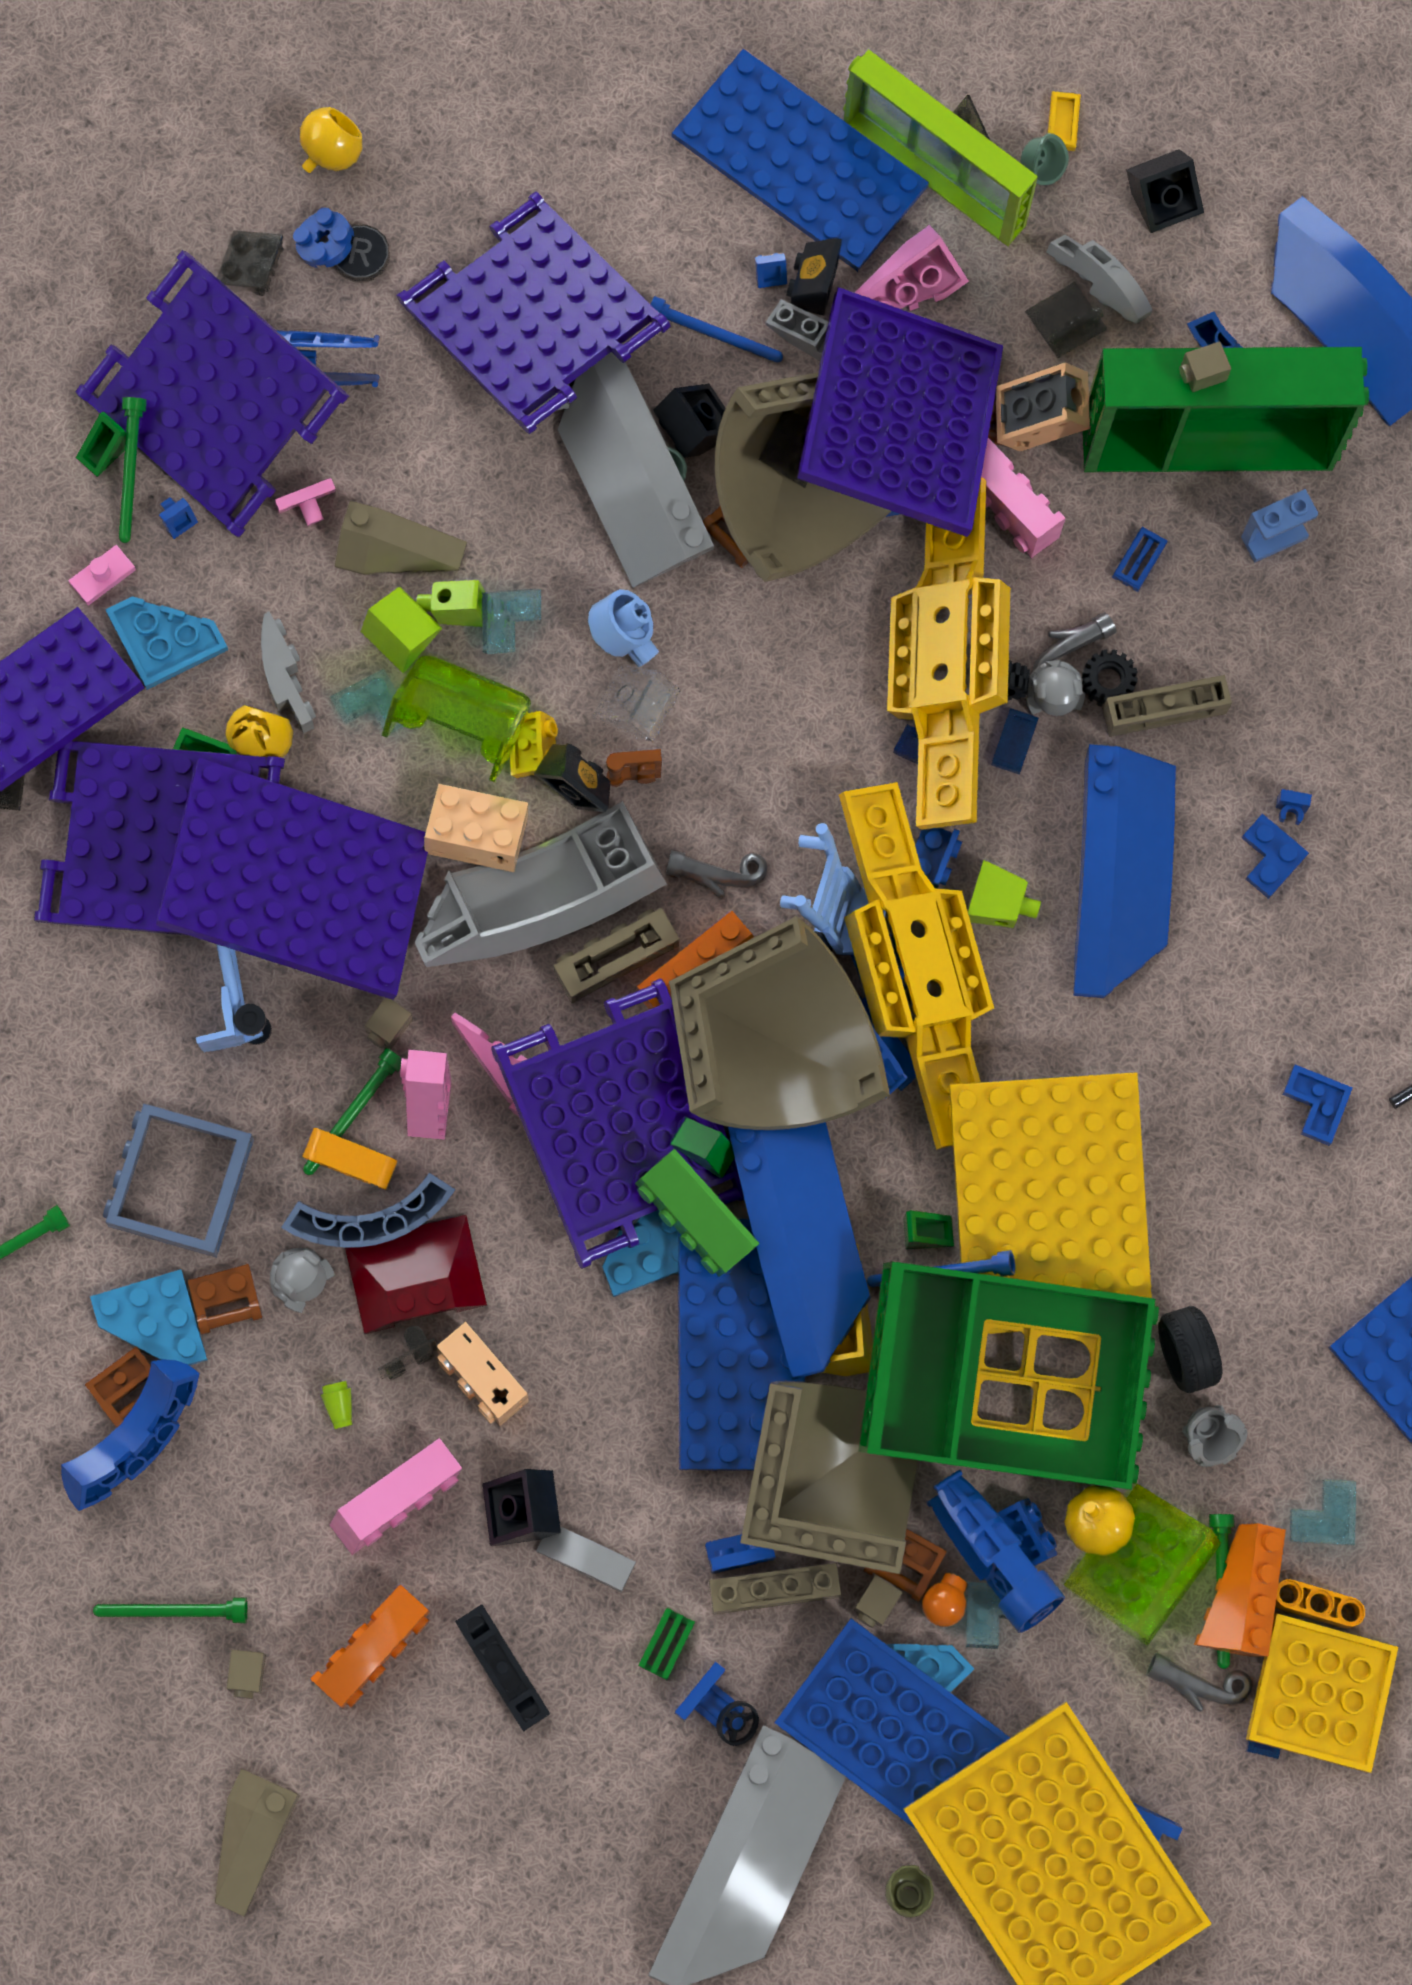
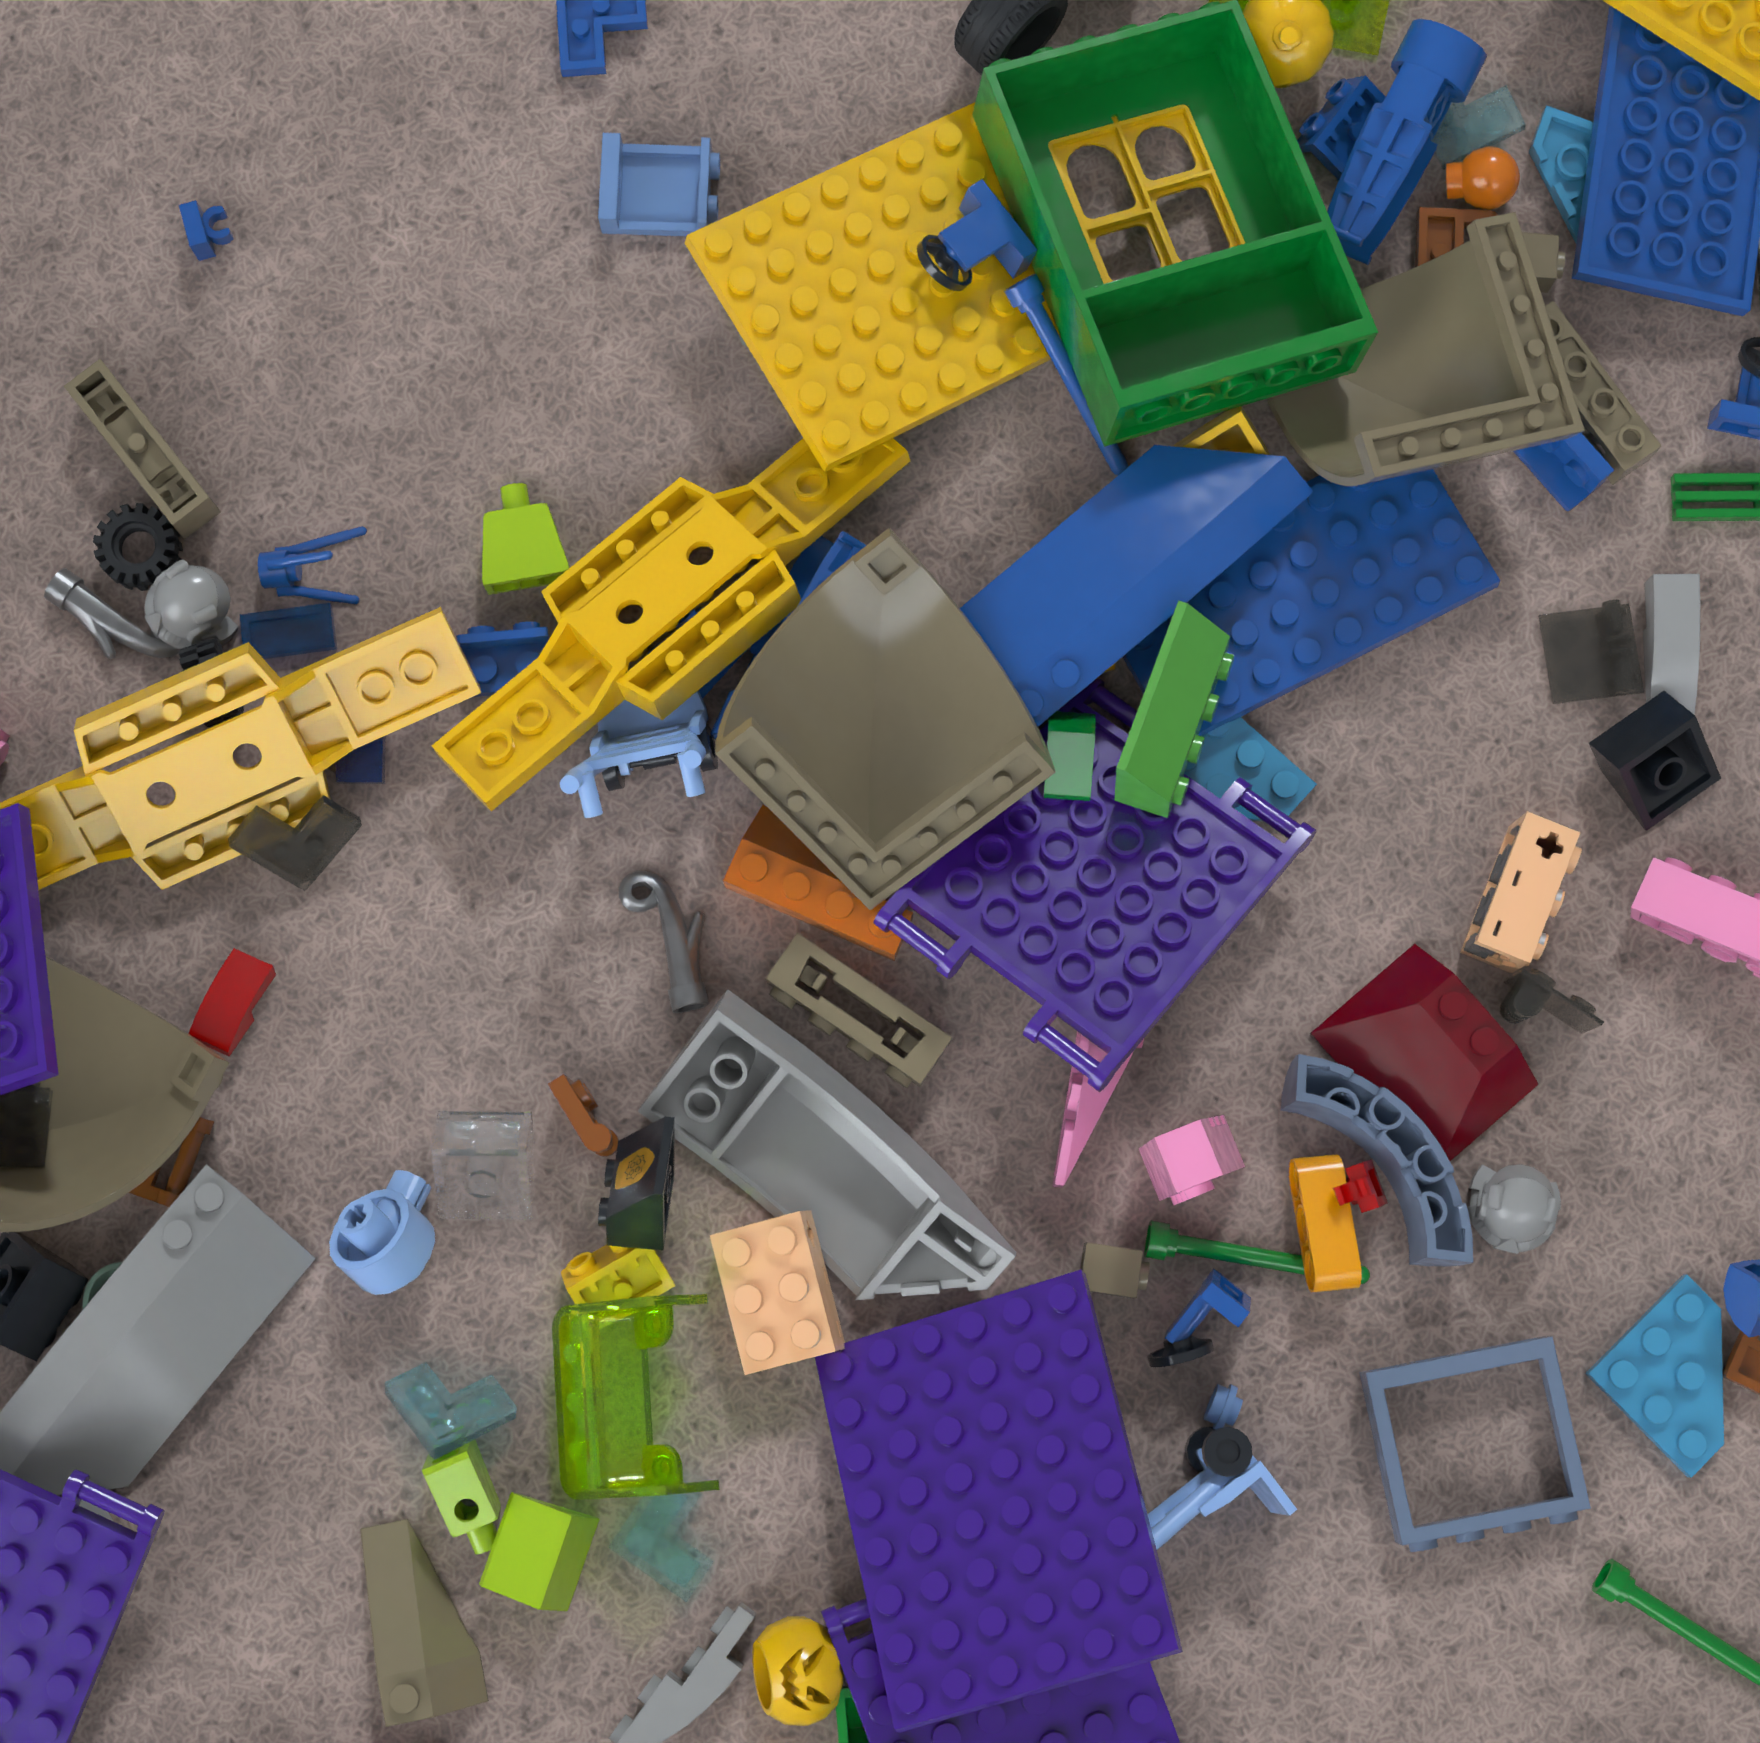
camera: 110 degrees left, 5 degrees up
(221, 1289) = (1581, 1302): dark orange plate -> none
(276, 1047) = (1223, 1406): none -> medium blue plate
(337, 1071) = (1214, 1293): none -> blue piece
(338, 1403) = (1649, 1069): lime cone -> none
(358, 1193) = (1361, 1187): none -> red plate
(608, 1508) = (1591, 653): none -> clear smoke hinge
(806, 606) = (230, 1001): none -> red slope
(875, 680) = (296, 852): none -> clear smoke tile
(927, 1230) = (1021, 427): green slope -> none
(1051, 1245) = (975, 237): none -> blue piece
(1053, 754) = (284, 566): none -> blue plant
(1123, 867) = (397, 407): blue slope -> none
(1190, 1087) = (656, 187): none -> medium blue panel
(1280, 855) = (277, 219): blue plate -> none

